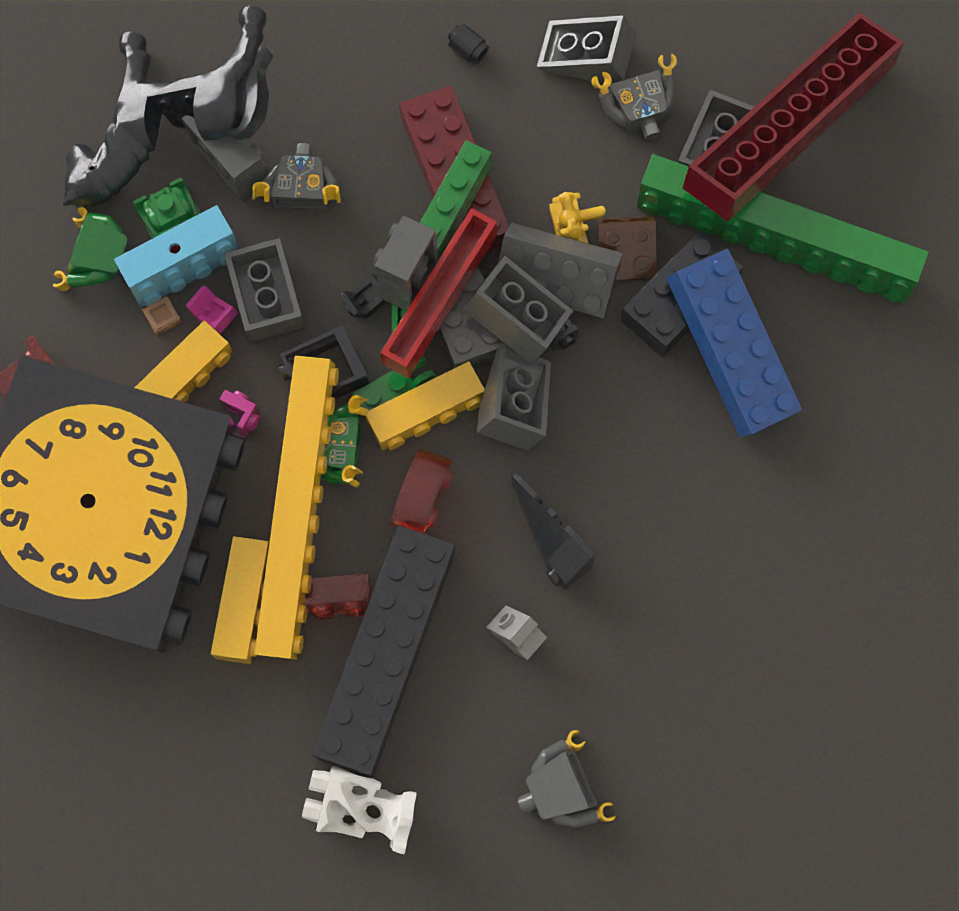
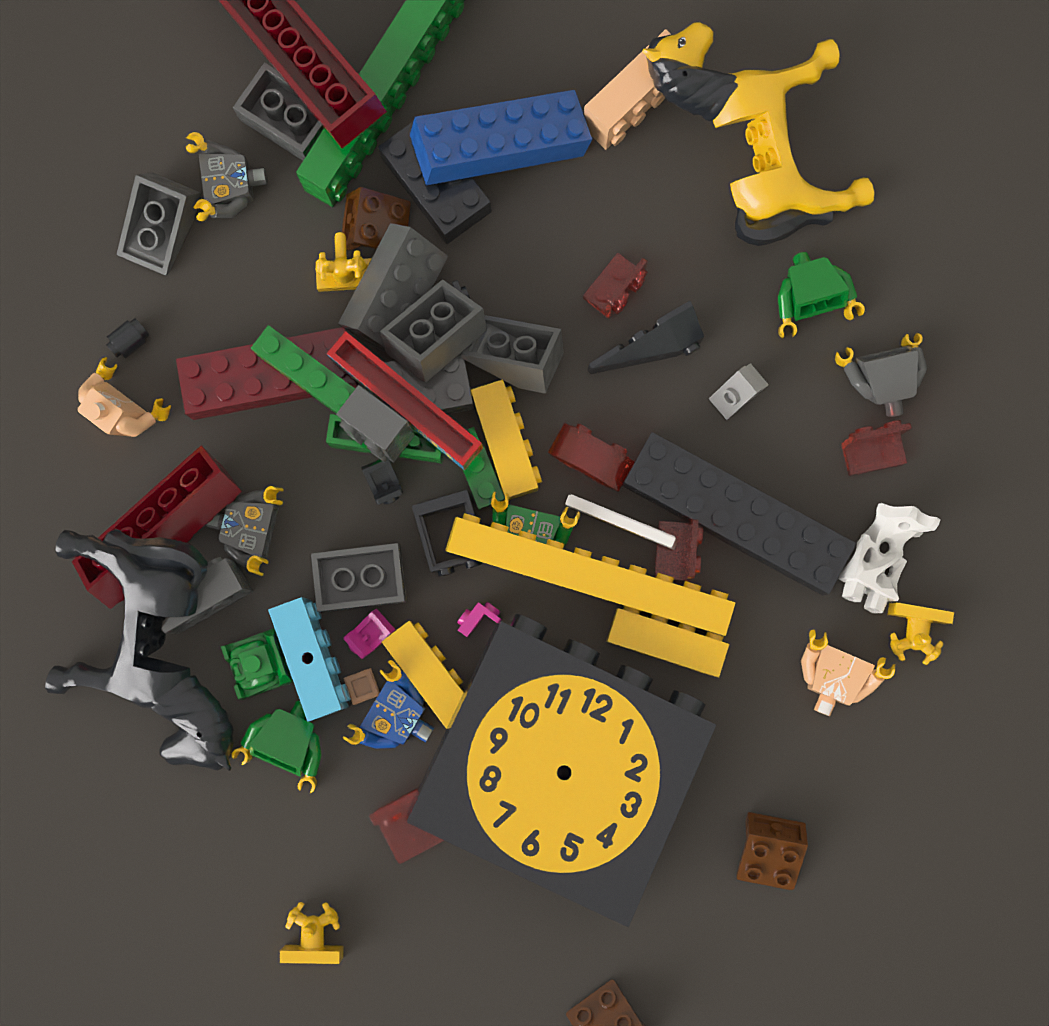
camera: 80 degrees left, 10 degrees up
(42, 741) = (772, 851): none -> reddish brown bracket
(134, 345) = (393, 714): none -> blue torso
(231, 782) = (839, 674): none -> light nougat torso
(290, 862) = (918, 629): none -> yellow piece
(303, 108) = (171, 510): none -> dark red brick
(358, 532) = (621, 521): none -> white tile
(394, 41) = (112, 409): none -> light nougat torso
(477, 788) = (875, 449): none -> clear red bracket
(607, 490) = (614, 284): none -> clear red bracket
(639, 693) = (815, 289): none -> green torso
(730, 640) = (778, 195): none -> yellow animal
(816, 472) = (622, 102): none -> light nougat brick

